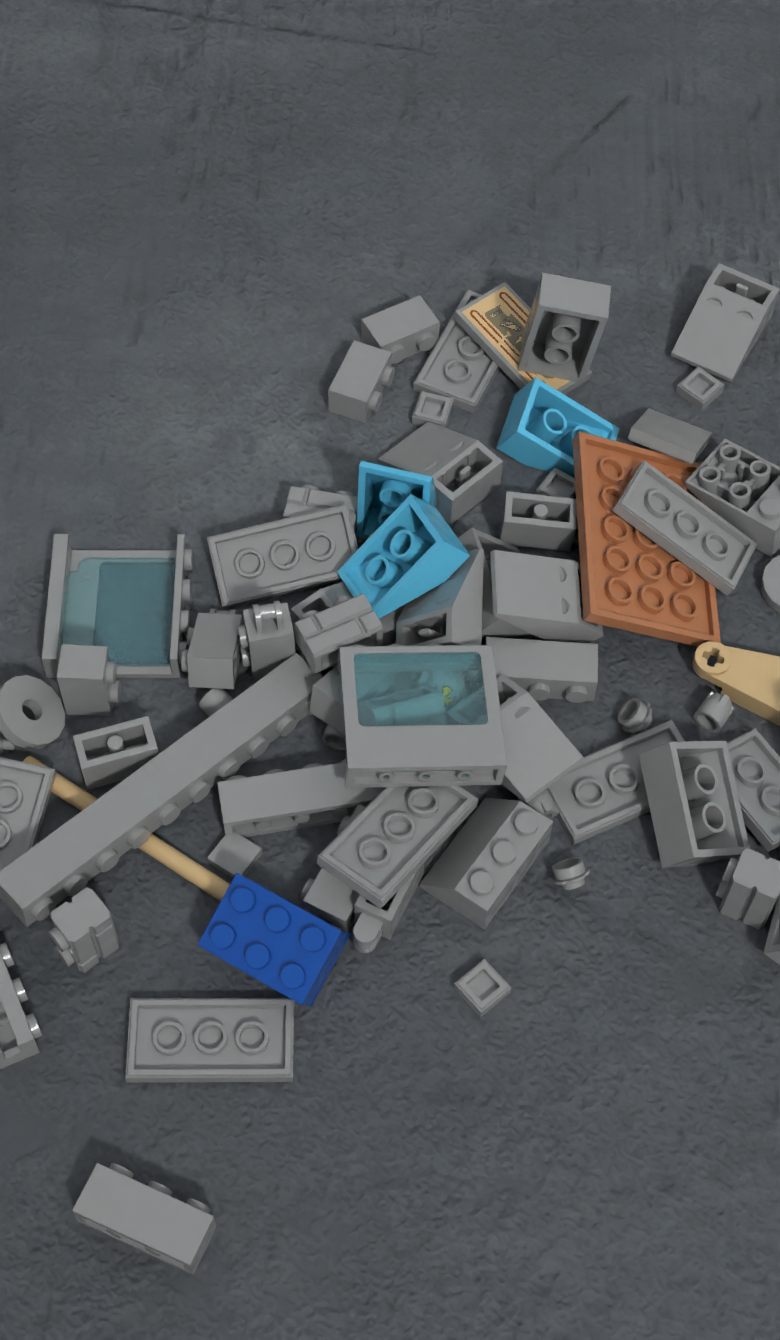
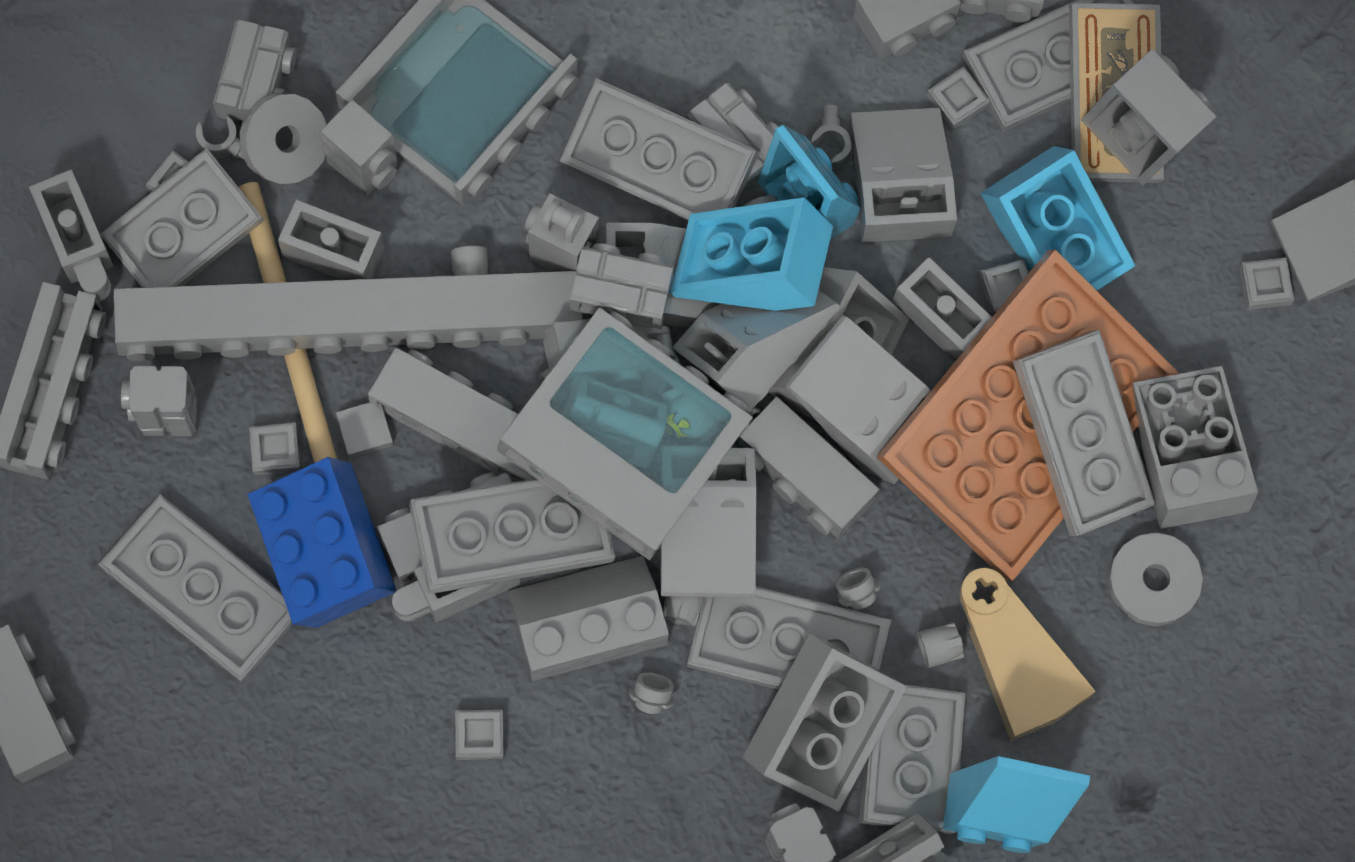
camera: 35 degrees right, 15 degrees up
(184, 912) = (274, 448): none -> light grey tile
(213, 650) = (497, 211): light grey brick -> none
(669, 436) = (1172, 317): light grey tile -> none

